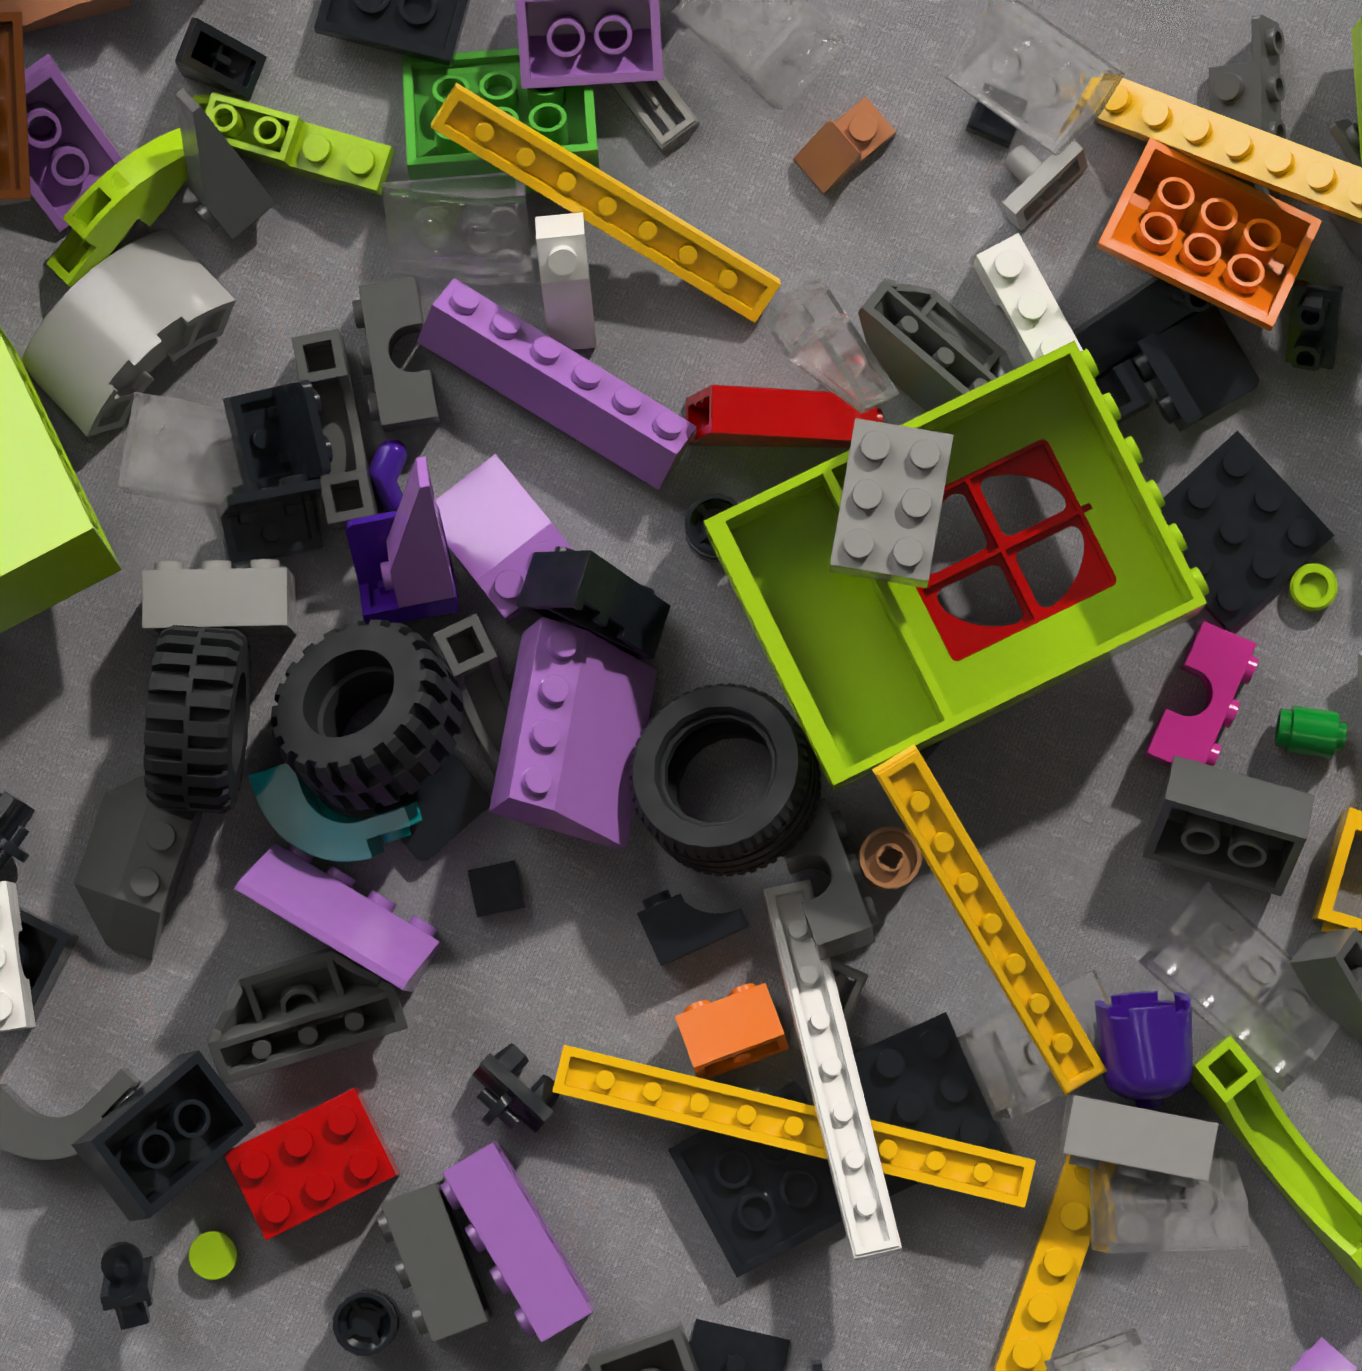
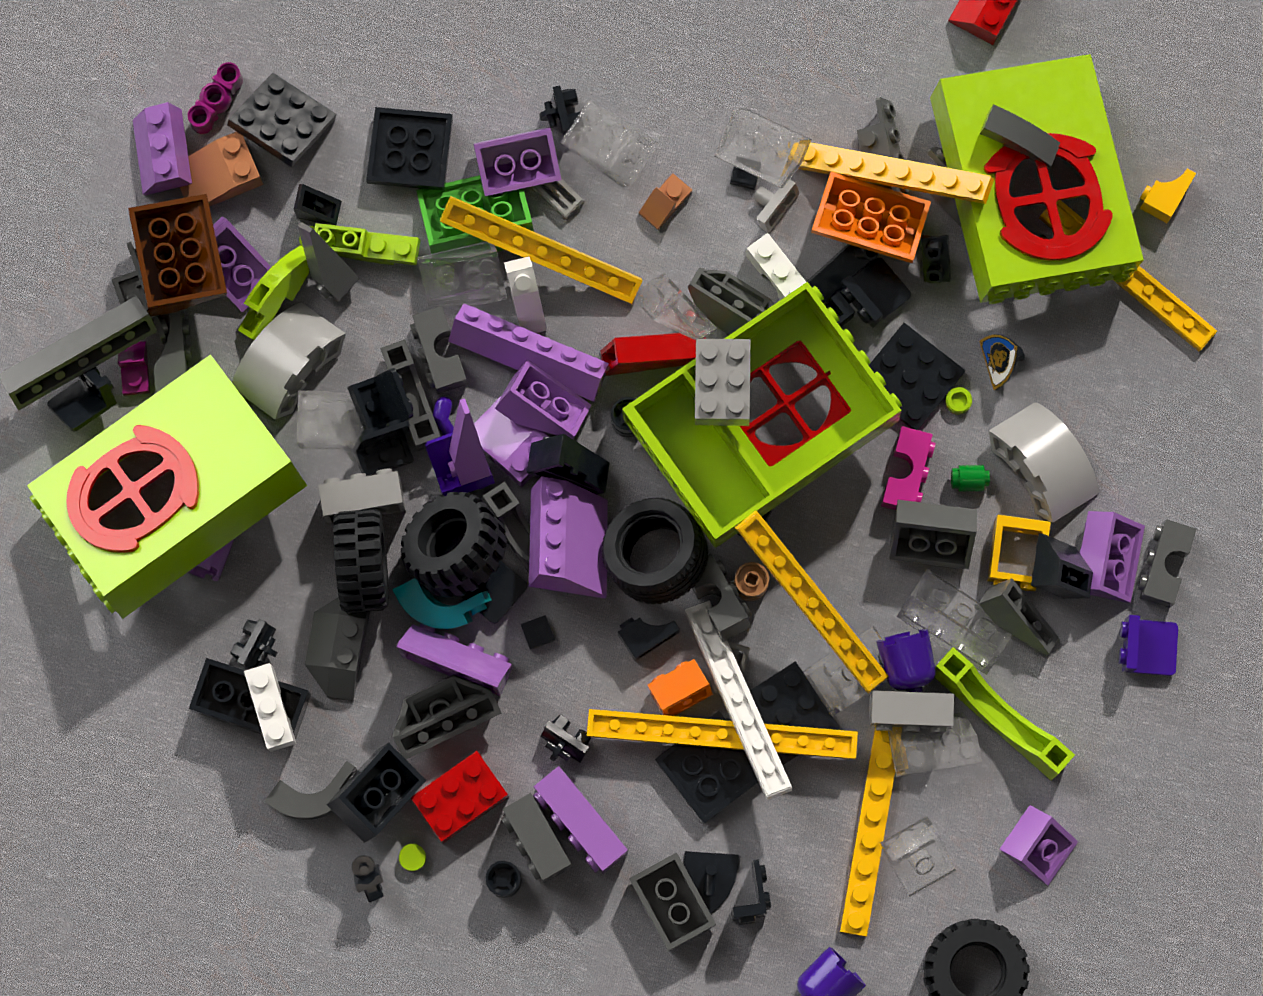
camera: 15 degrees left, 5 degrees down
(567, 480) = (542, 402): none -> medium lavender slope

